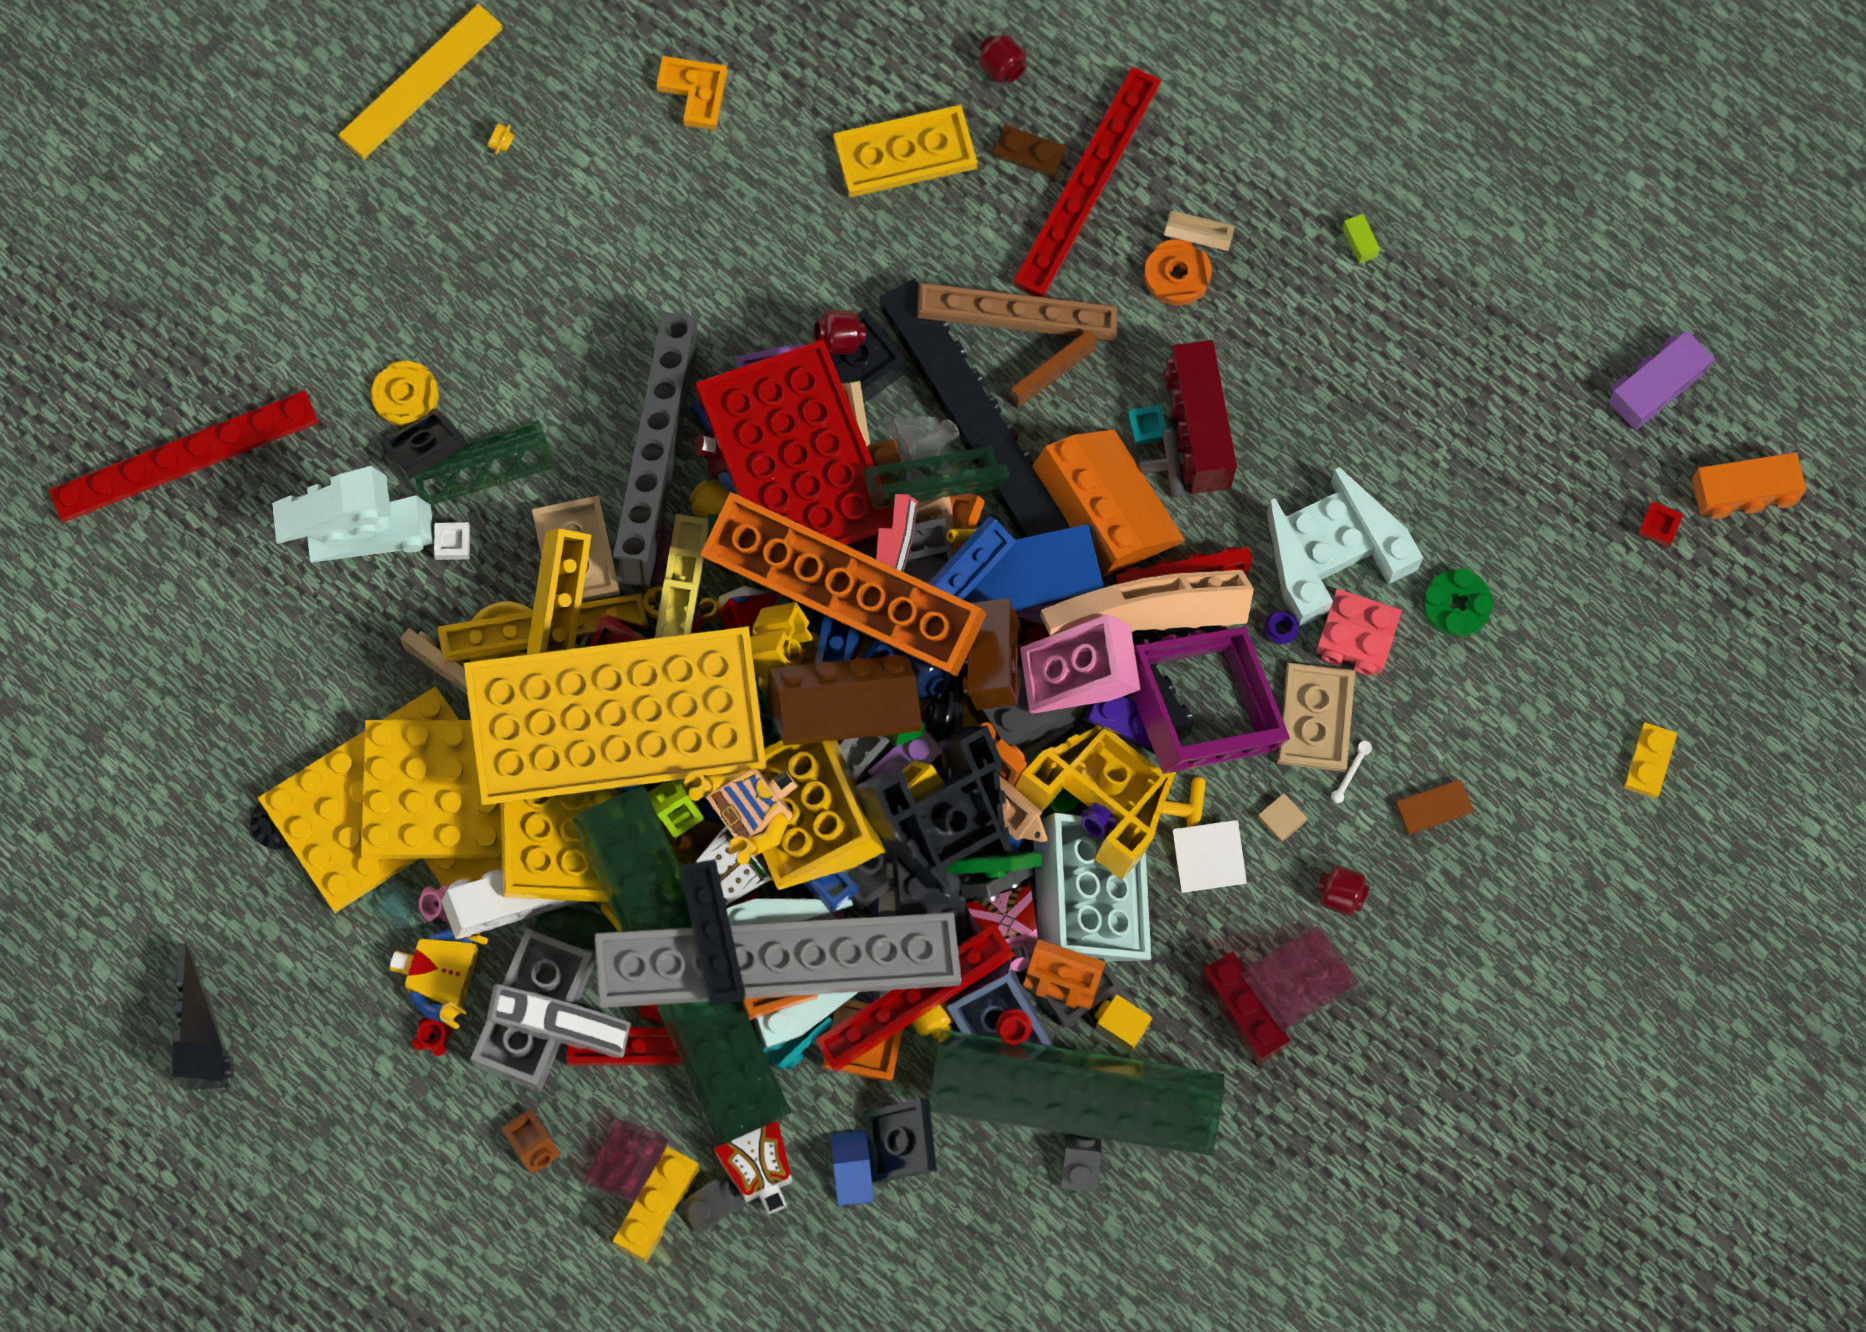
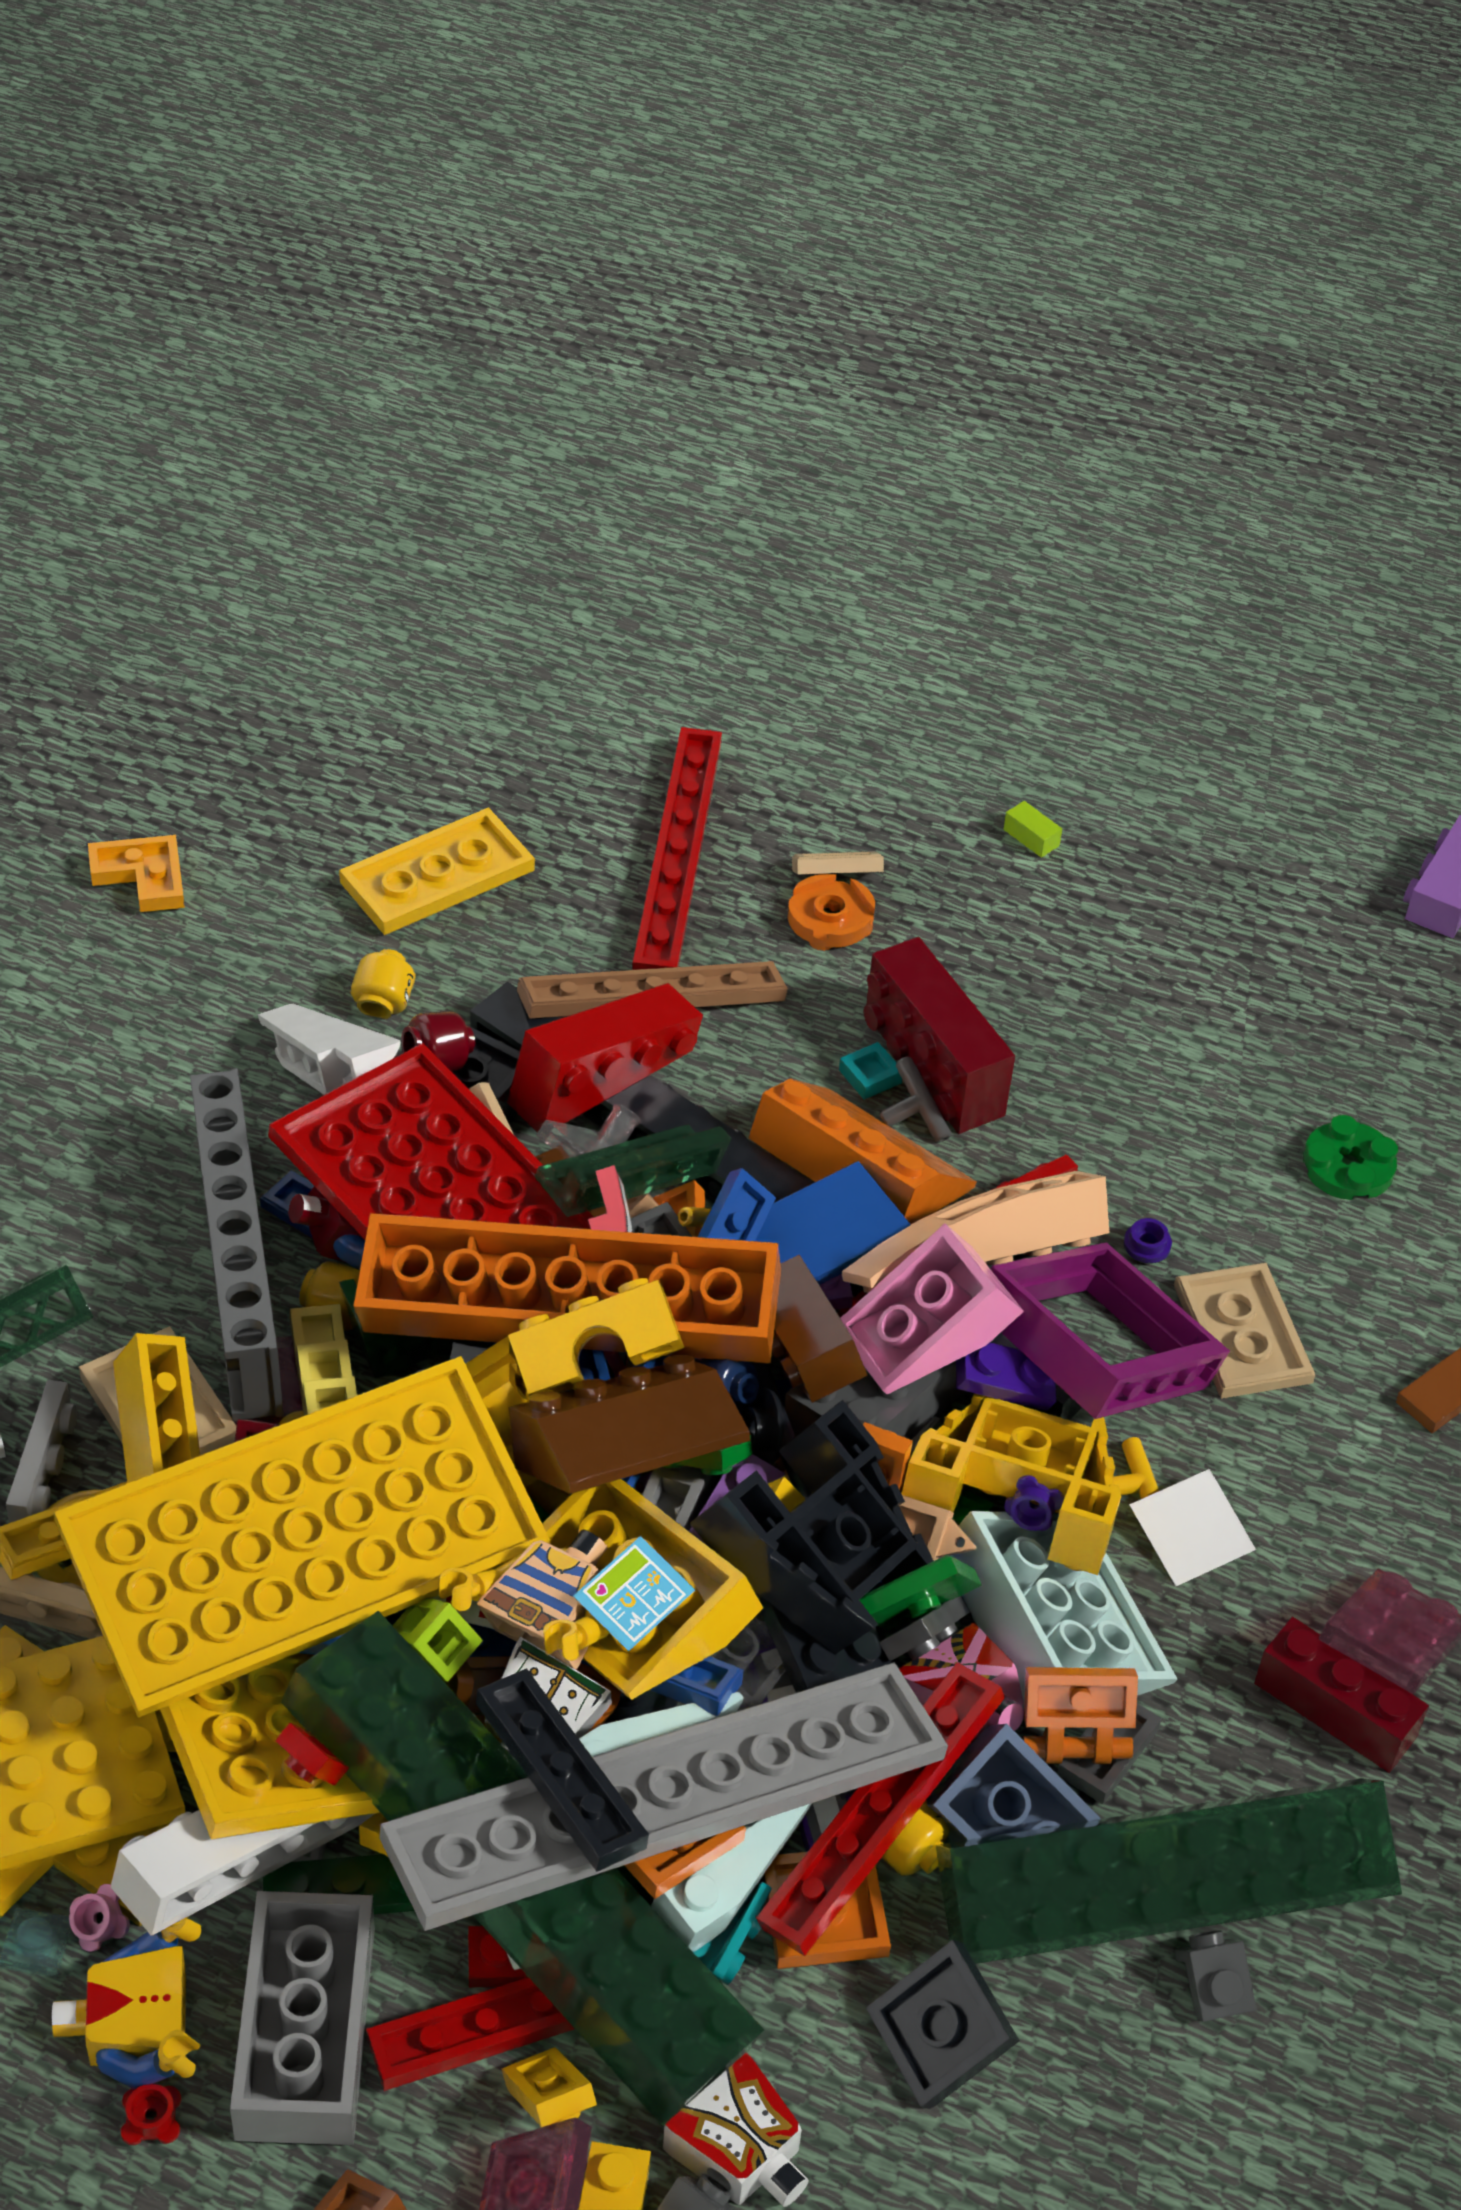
camera: 20 degrees left, 25 degrees down
(490, 570) = (42, 1452): none -> light grey plate
(558, 1021) = (356, 1997): slope -> none
(576, 863) = (309, 1756): none -> red plate
(657, 1102) = (549, 2087): none -> yellow plate
(768, 309) = (324, 1048): none -> white wedge
(799, 827) = (634, 1593): none -> sticker
(830, 247) = (383, 984): none -> yellow head
(851, 1168) = (884, 2096): blue slope -> none
(869, 636) = (551, 1348): none -> yellow arch
(952, 372) = (599, 1053): none -> red wedge
(1002, 58) = (520, 755): dark red head -> none
(1014, 1026) = (1041, 1800): red plate -> none
(1029, 151) = (591, 839): reddish brown plate -> none
(1053, 368) = (723, 1040): dark orange tile -> none
(1122, 1022) = (1182, 1765): yellow brick -> none
(1282, 818) = (1262, 1456): tan tile -> none
(1331, 538) = (1167, 1122): light aqua wedge -> none
(1342, 890) = (1389, 1512): dark red head -> none
(1358, 633) = (1247, 1222): coral plate -> none
(1363, 748) = (1322, 1349): white hinge -> none

